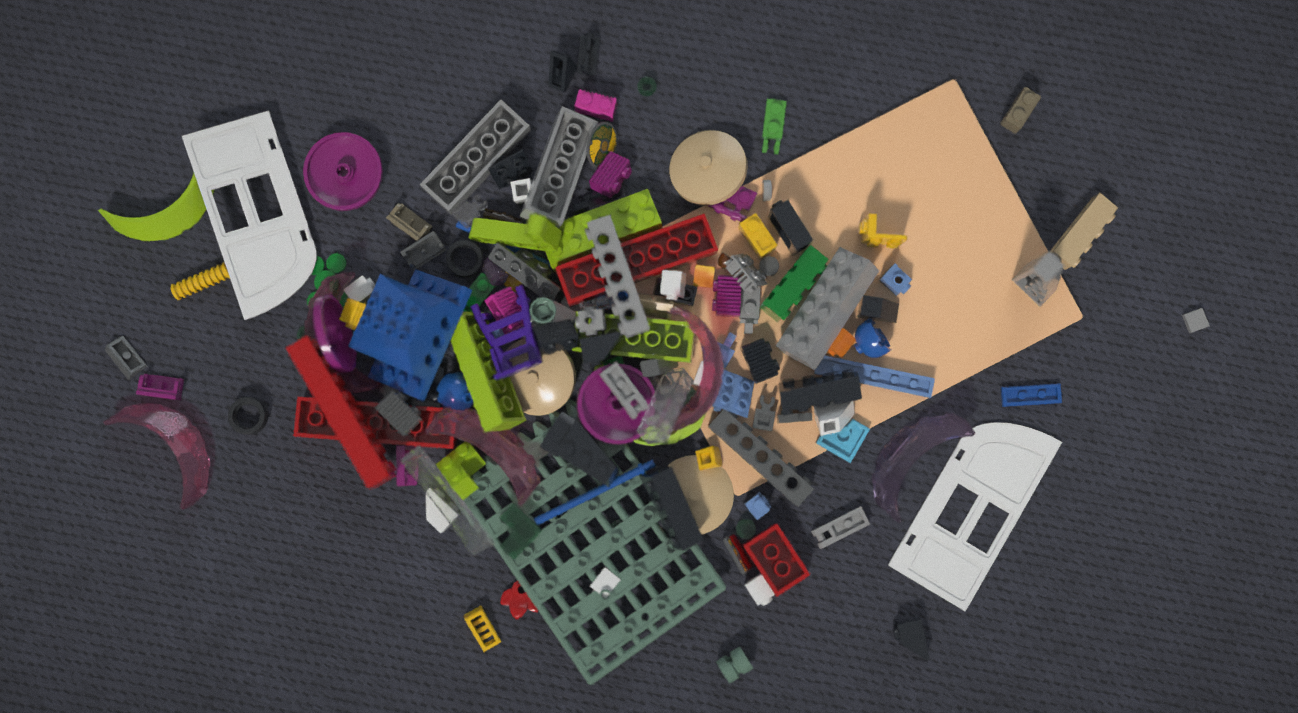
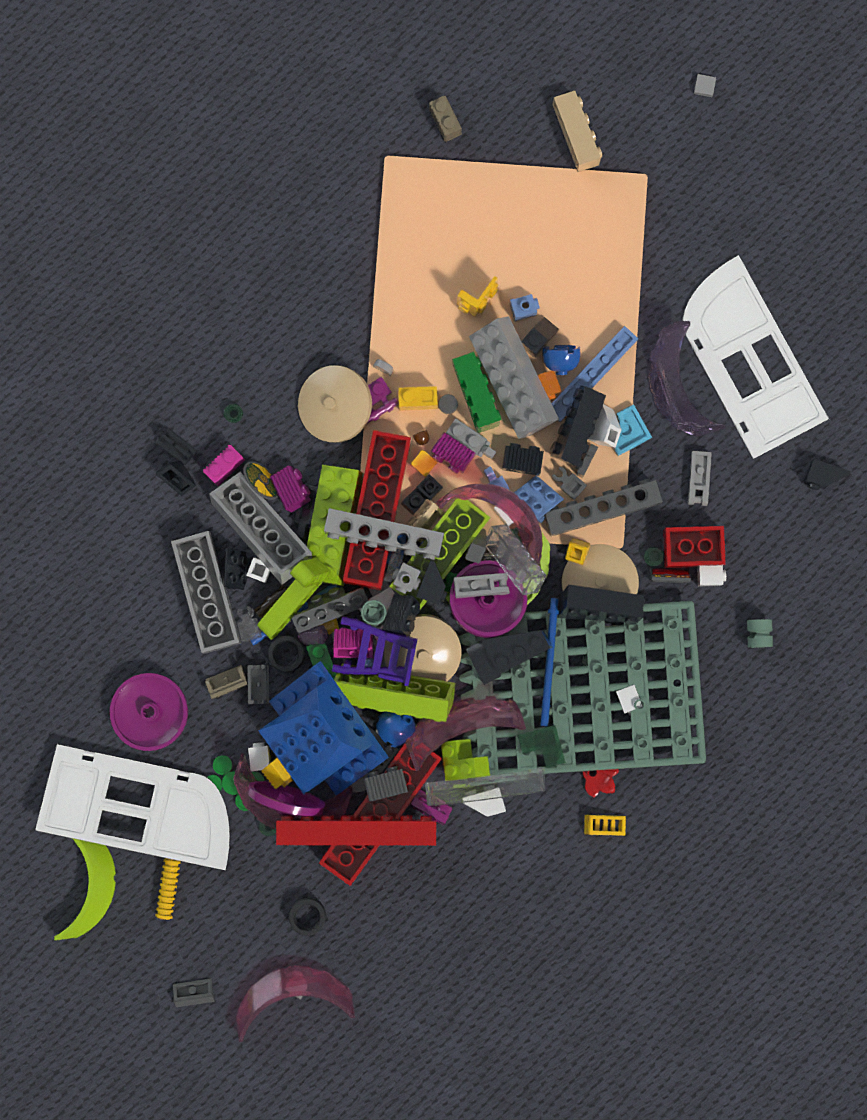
camera: 55 degrees left, 0 degrees up
(160, 386) = (237, 976): magenta hinge -> none
(673, 284) = (416, 492): white brick -> none
(745, 263) = (434, 422): light grey hinge -> none
(758, 505) = (641, 535): medium blue brick -> none
(773, 123) = (330, 327): bright green hinge -> none
(789, 227) = (427, 366): black window -> none
(1031, 395) = (684, 256): blue tile -> none
(1040, 277) = (594, 189): light grey wedge -> none

